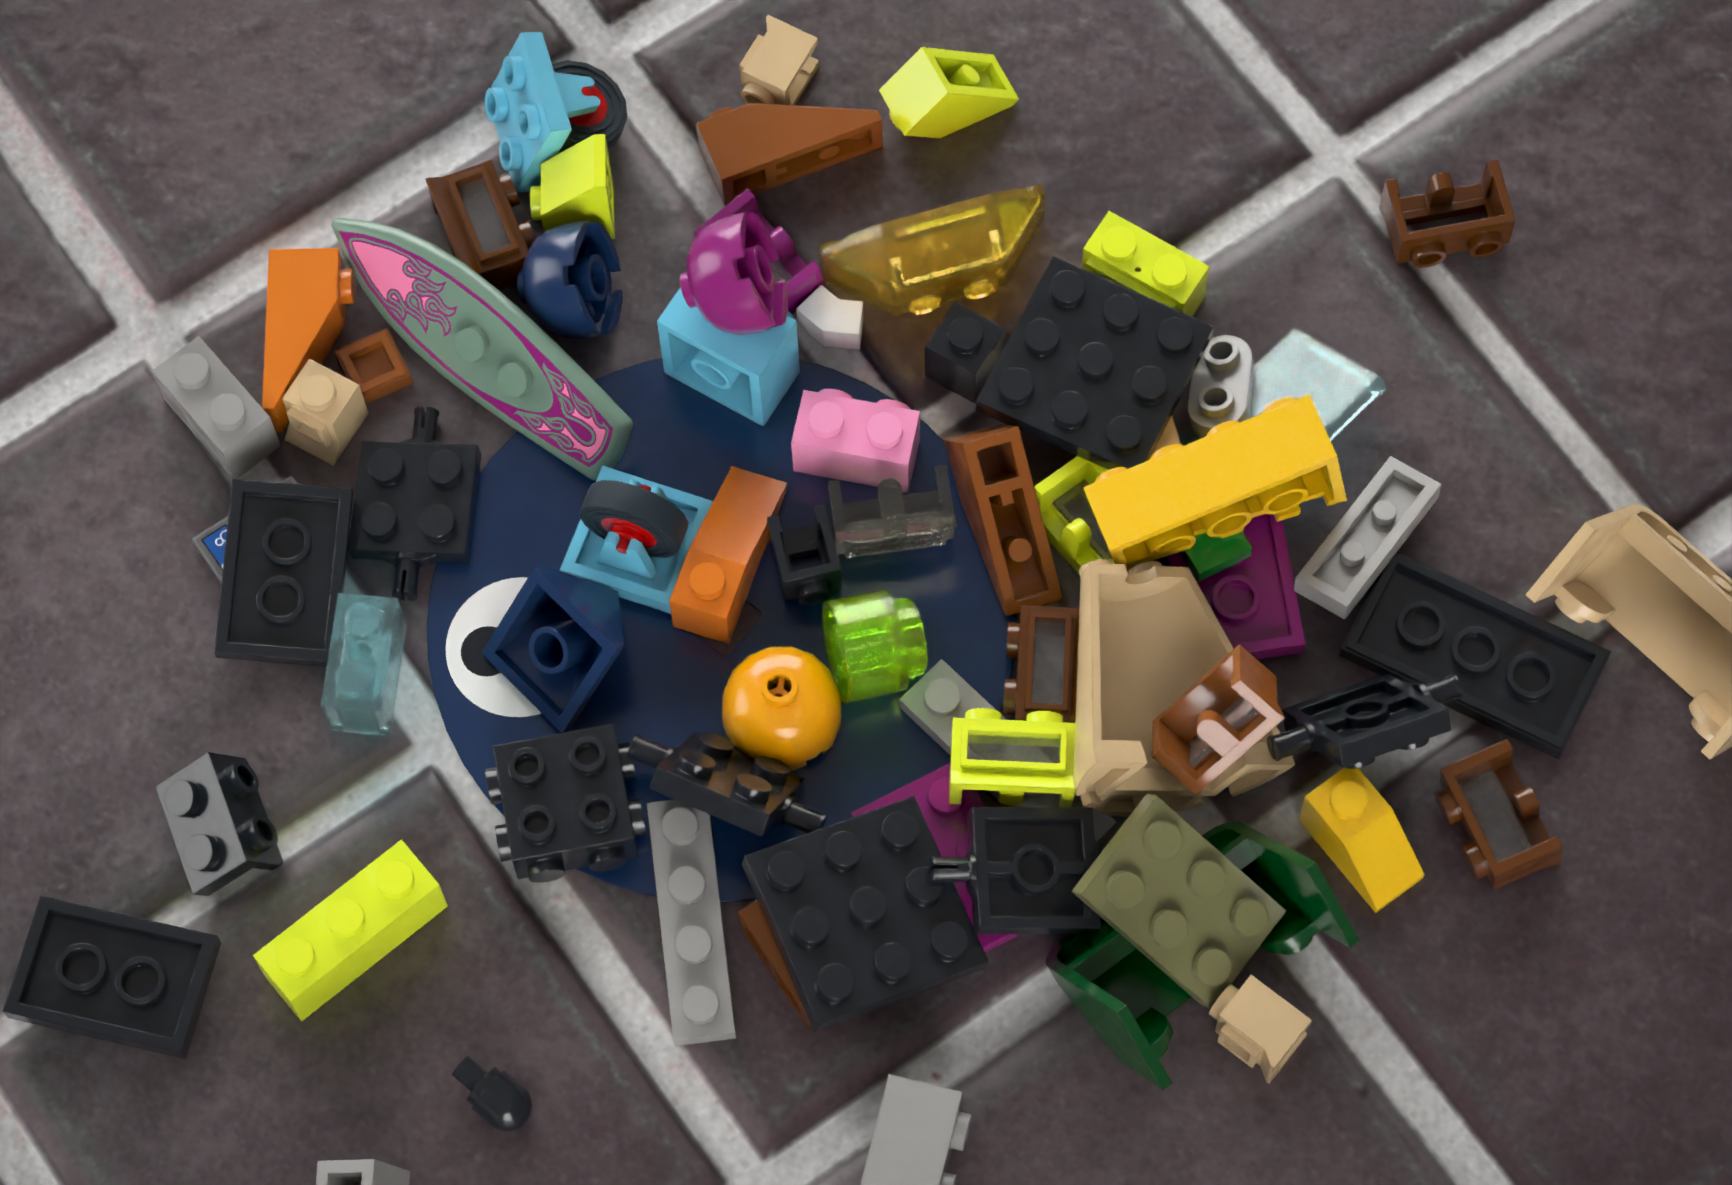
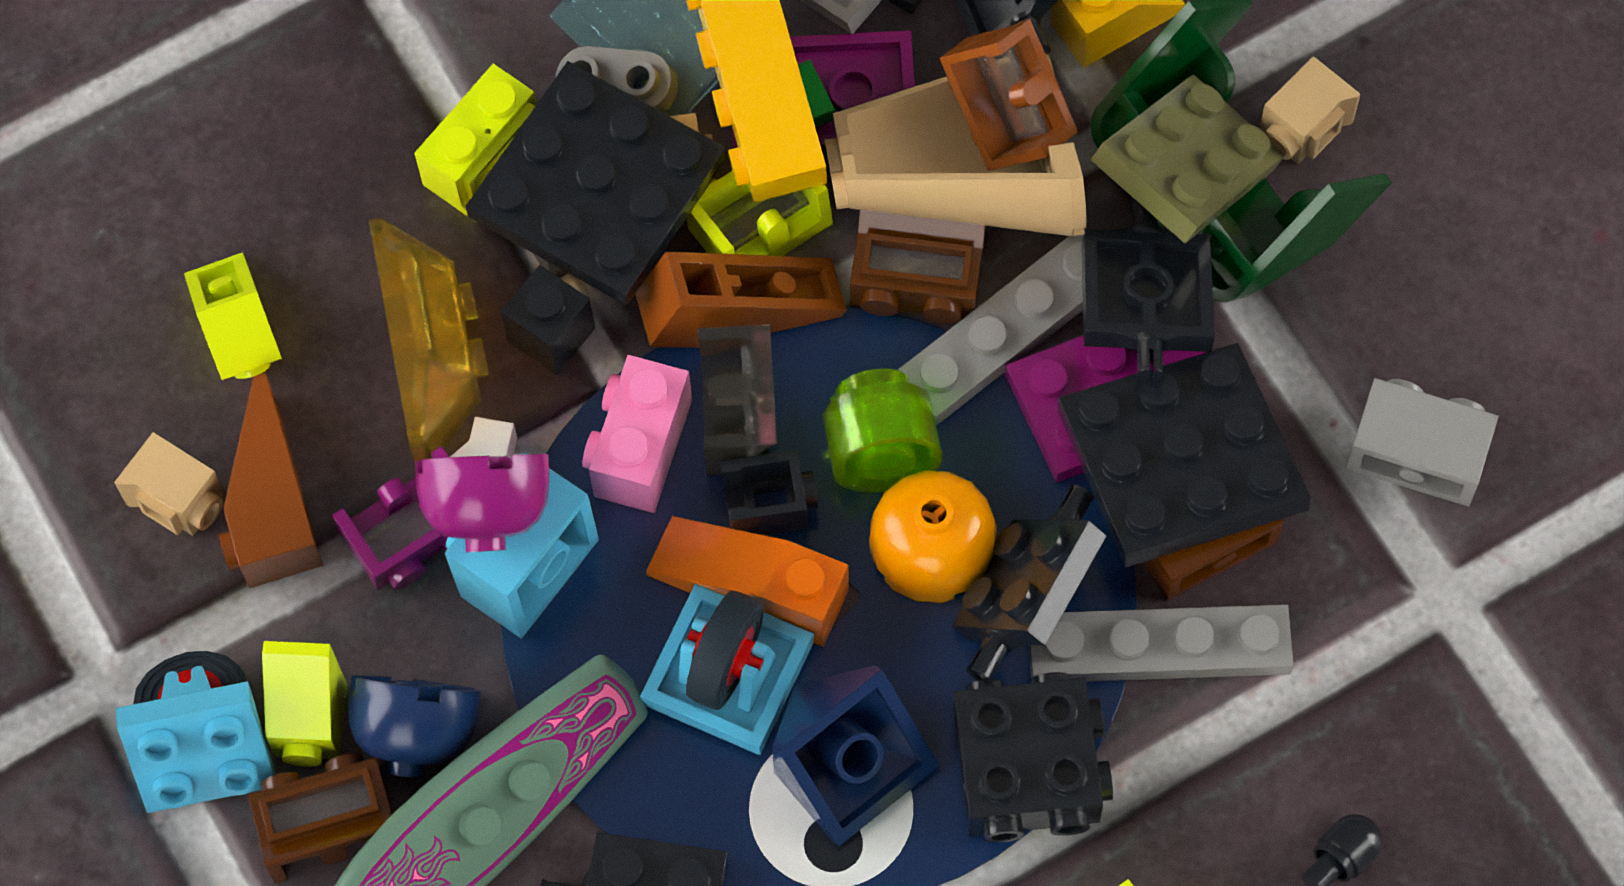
camera: 85 degrees left, 0 degrees up
(1012, 756) = (1028, 300): neon yellow window -> none

